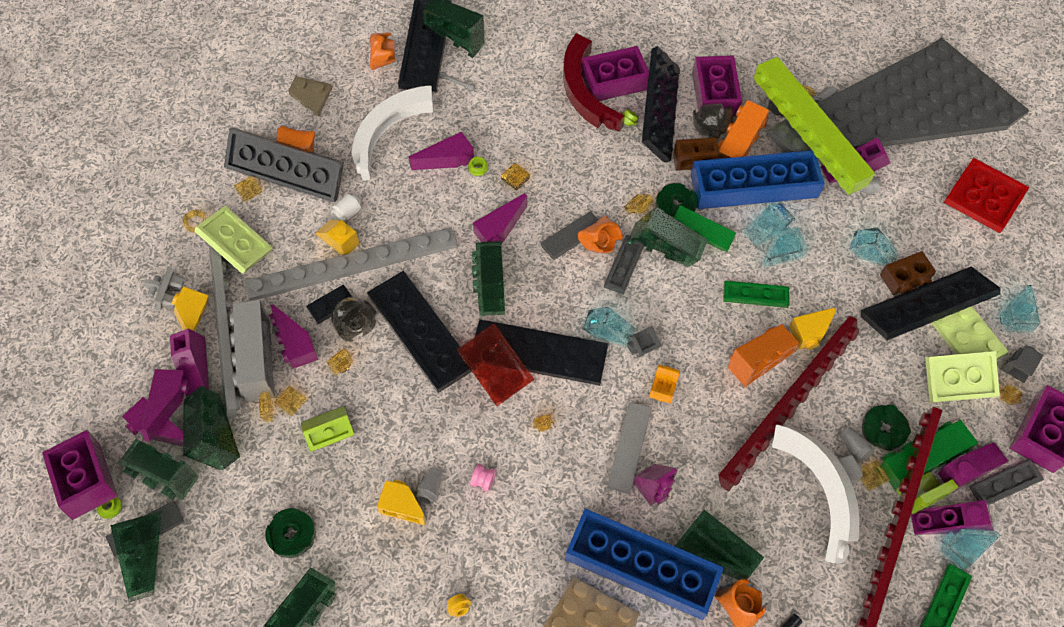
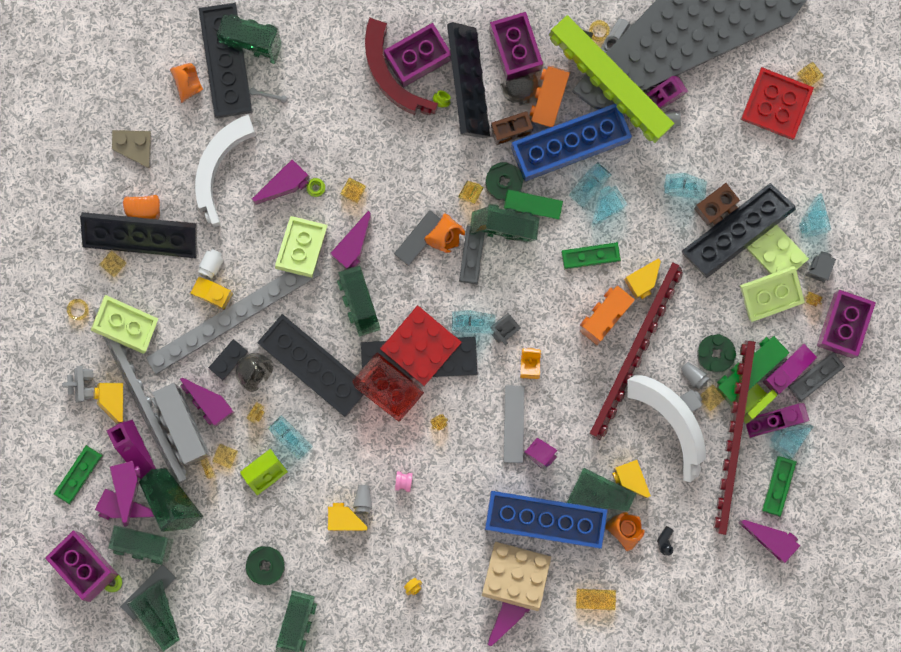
camera: 20 degrees left, 20 degrees up
(123, 381) = (78, 474): none -> green tile
(369, 397) = (290, 437): none -> clear light blue slope
(444, 212) = (301, 246): none -> yellowish green plate
(544, 335) = (420, 345): none -> red plate
(762, 538) = (631, 478): none -> yellow slope
(1026, 176) = (810, 74): none -> clear yellow tile

